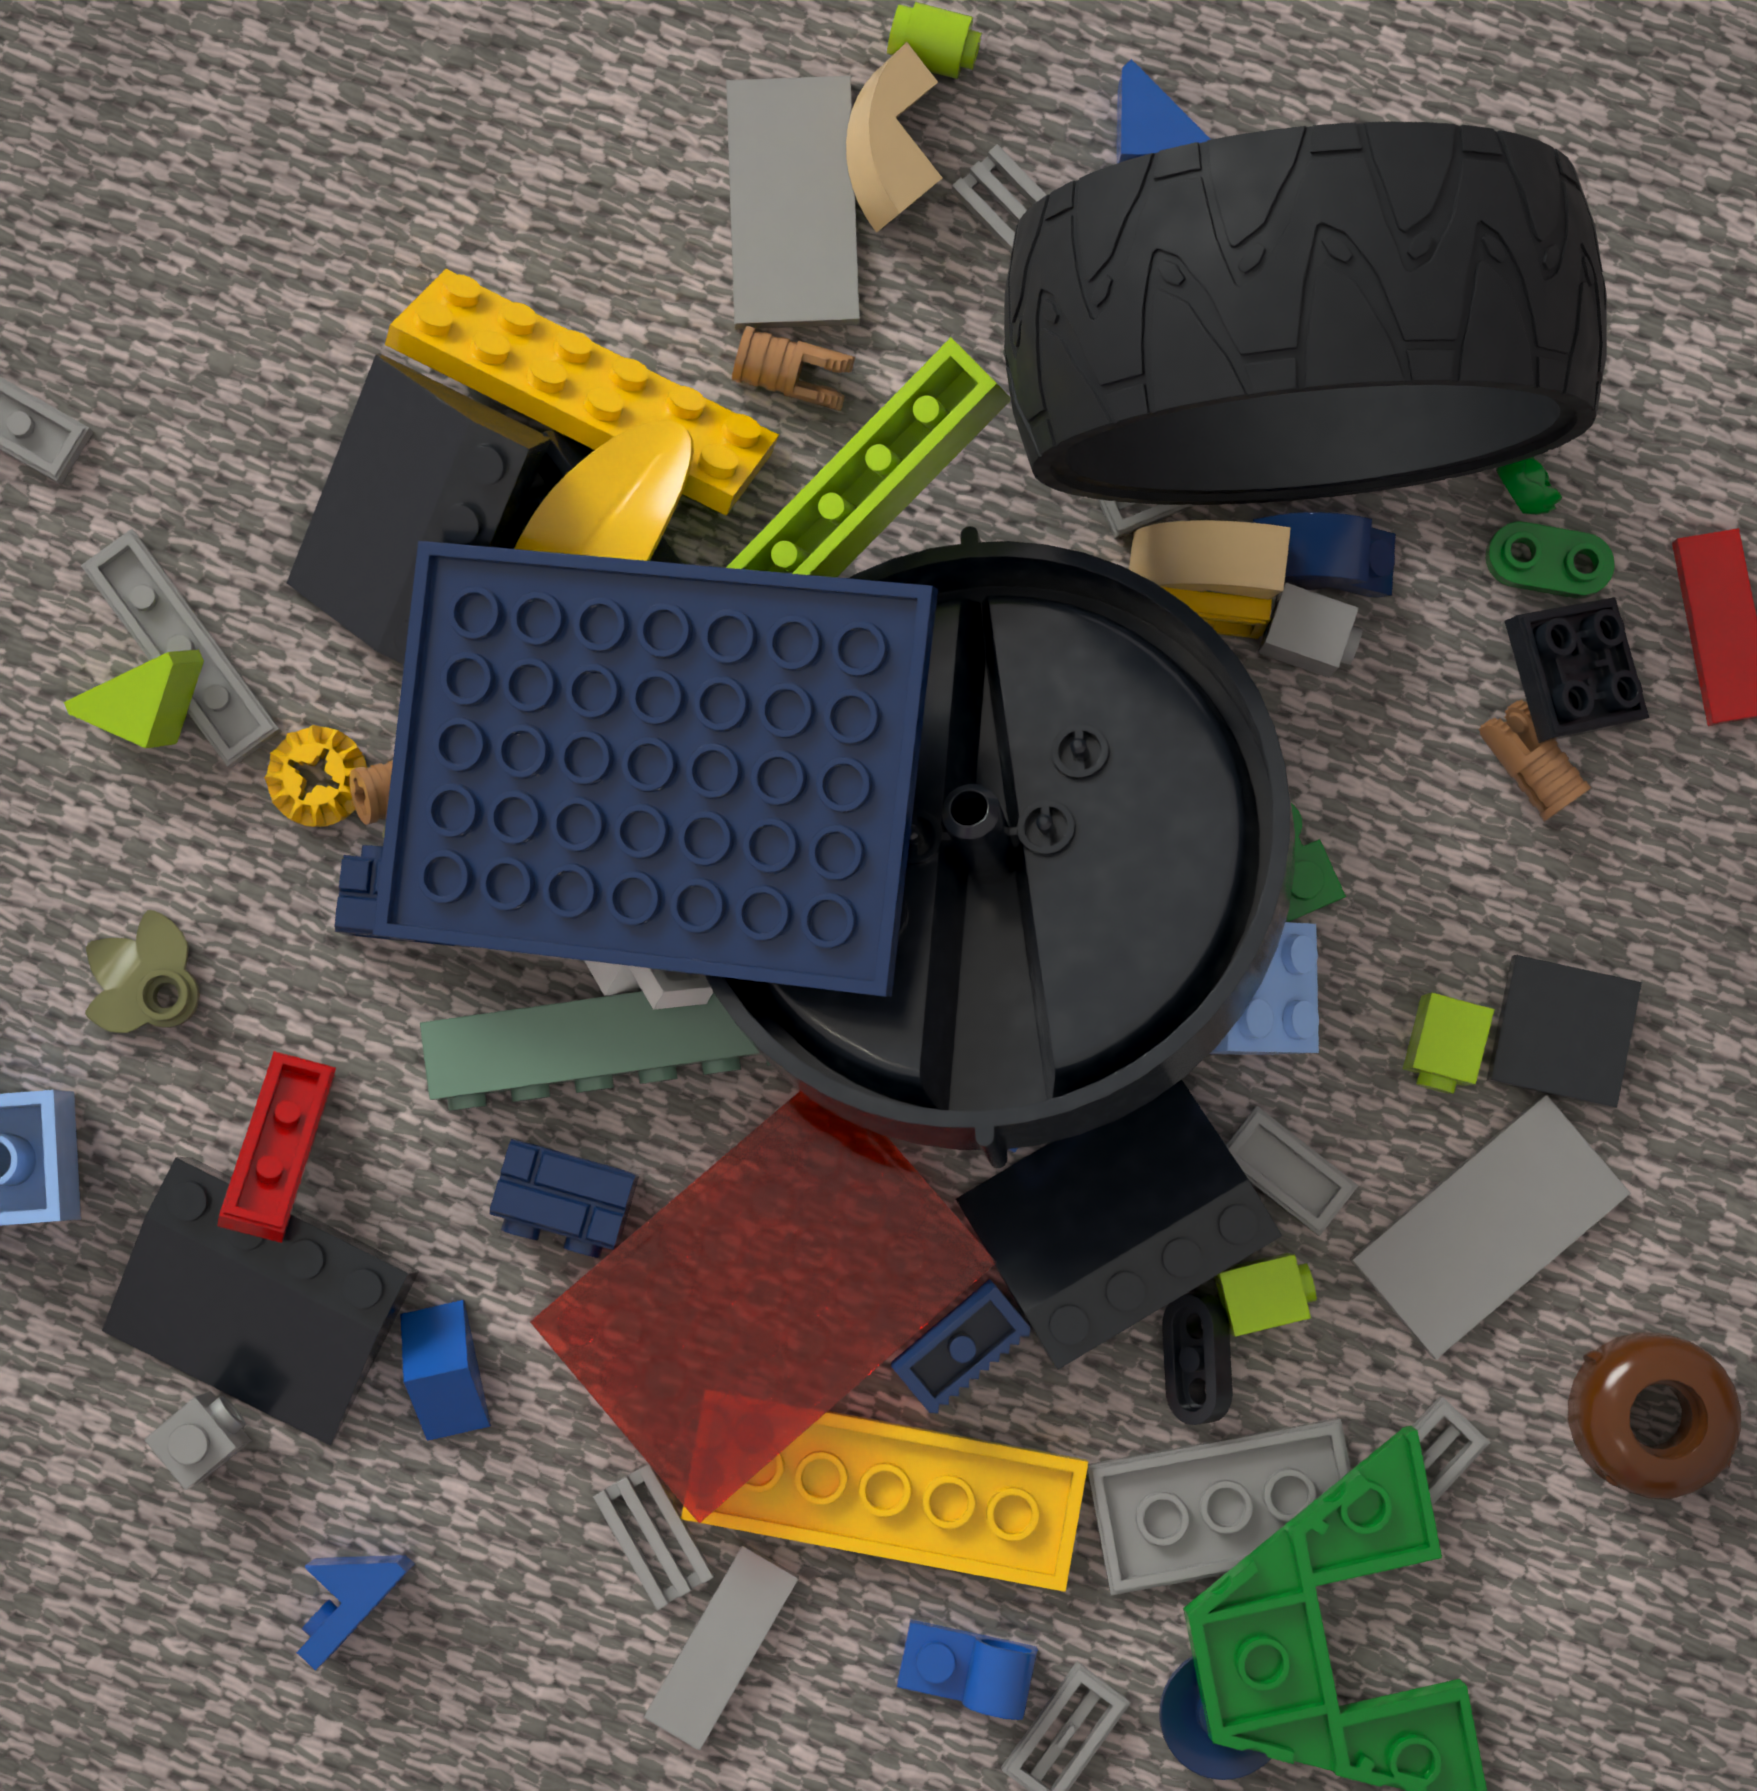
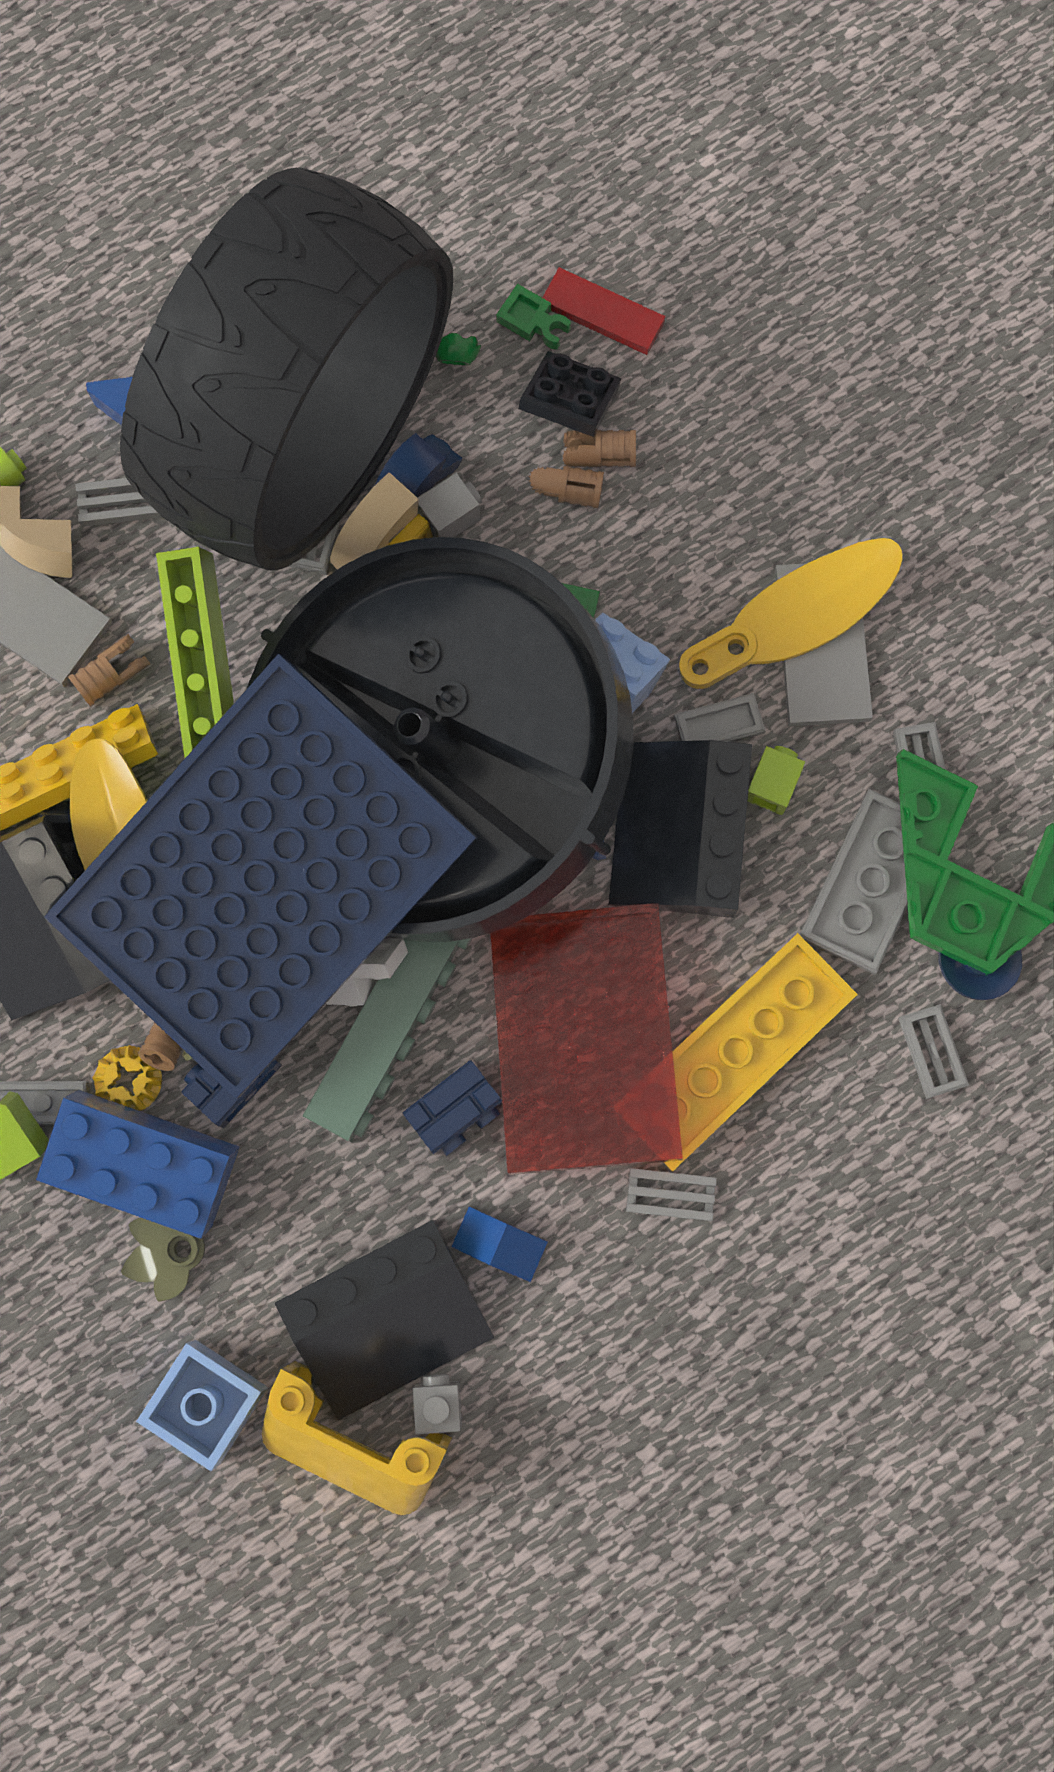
camera: 50 degrees left, 5 degrees down
(73, 1448) = (295, 1436): none -> yellow windscreen
(223, 868) = (137, 1163): none -> blue brick
(277, 1147) = (311, 1243): red tile -> none
(359, 1586) = (581, 1374): blue slope -> none
(721, 1647) = (756, 1201): light grey tile -> none
(960, 1346) = (688, 953): dark blue brick -> none
(968, 1667) = (861, 1076): blue plate -> none
(1197, 1358) = (783, 838): black plate -> none
(1445, 738) = (569, 485): none -> medium nougat hinge
(1447, 1042) = (712, 593): lime brick -> none
(1506, 1169) = (799, 611): none -> yellow plant
(1551, 560) = (505, 367): green plate -> none
(1564, 1031) = (750, 533): black tile -> none
(1602, 1406) = (961, 653): reddish brown piece -> none
(1645, 535) = (529, 314): none -> green plate

